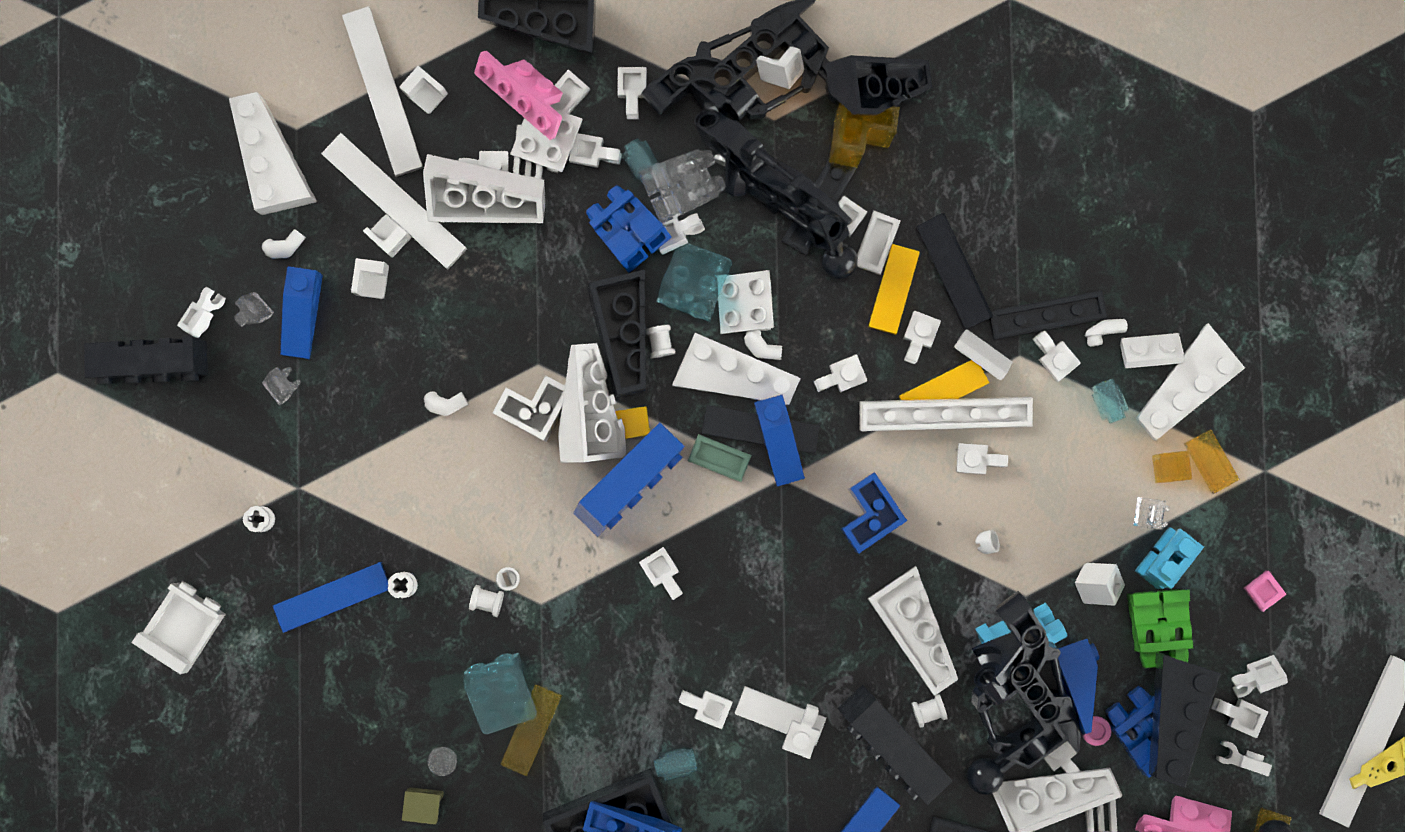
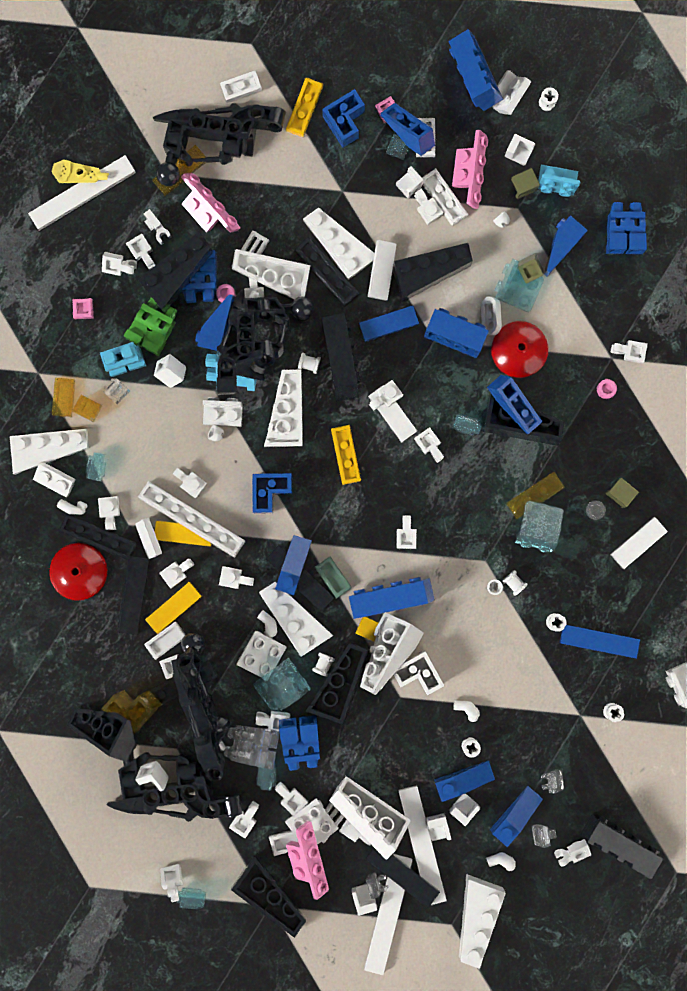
camera: 150 degrees left, 0 degrees up
(360, 755) = (638, 543): none -> white tile
(391, 148) = (404, 877): none -> black tile
(392, 312) = (464, 780): none -> blue slope
(403, 353) = (473, 753): none -> white bush
(422, 114) = (374, 885): none -> clear tile
(805, 624) = (346, 455): none -> yellow tile
(997, 574) = (222, 412): none -> white bracket
(1027, 268) = (91, 573): none -> red dish

